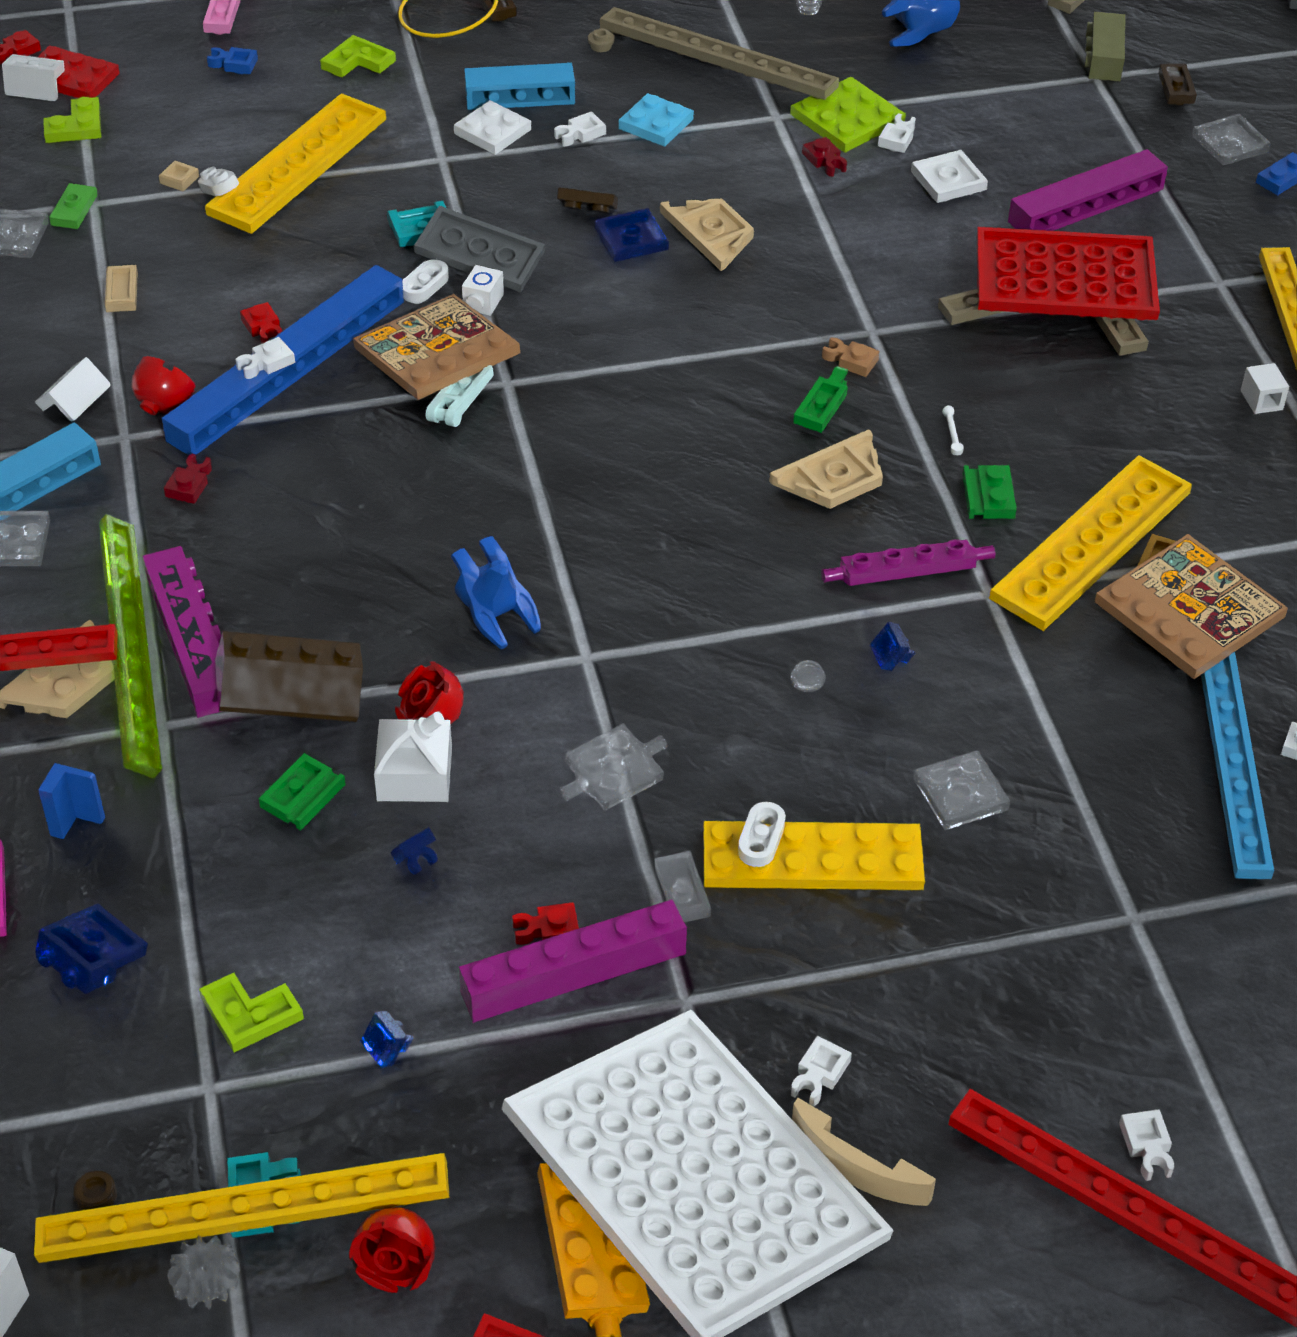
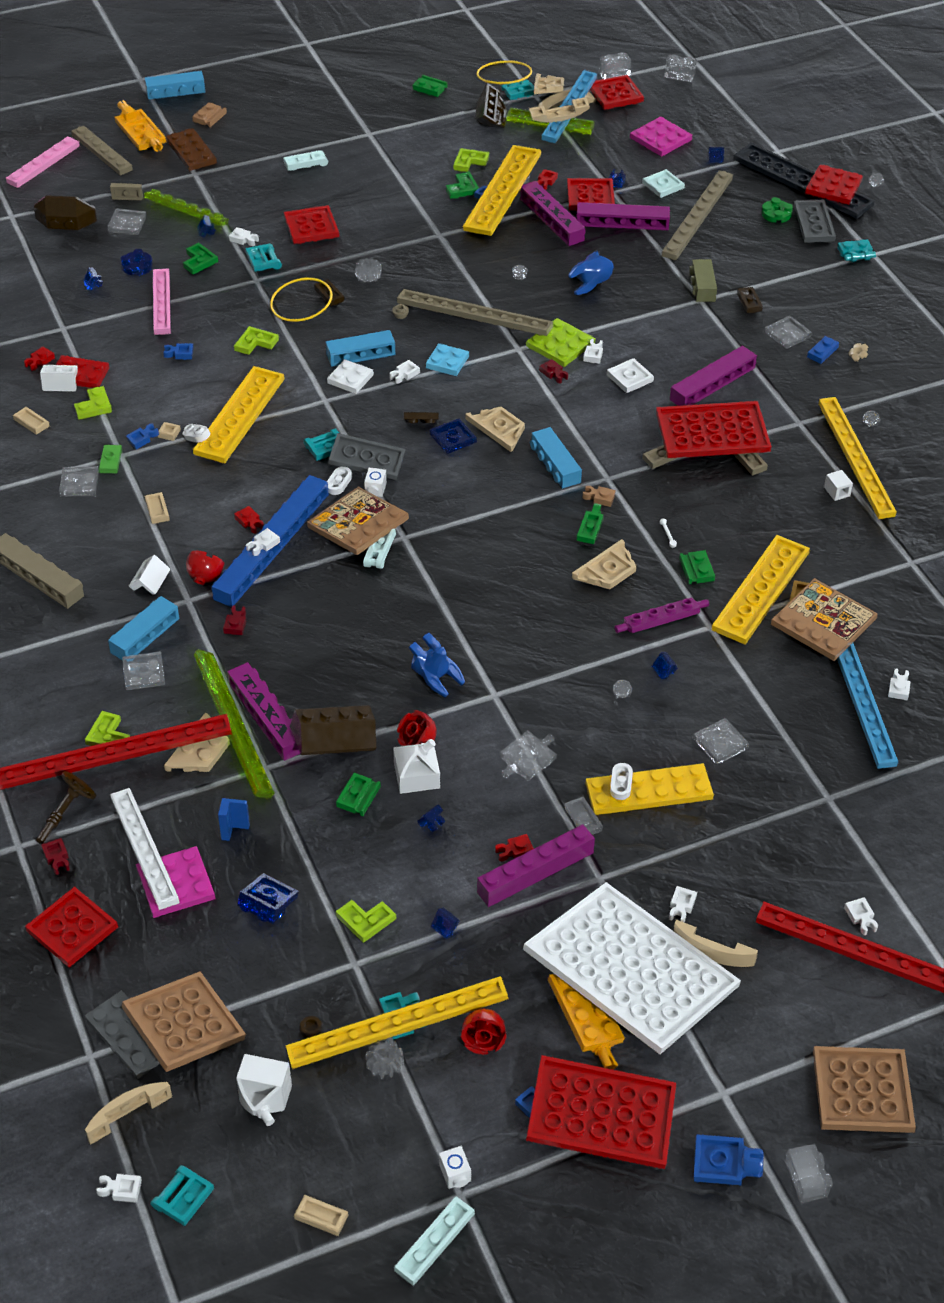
camera: 10 degrees left, 0 degrees up
(131, 178) = (141, 437): none -> blue plate
(791, 288) = (556, 457): none -> dark azure brick

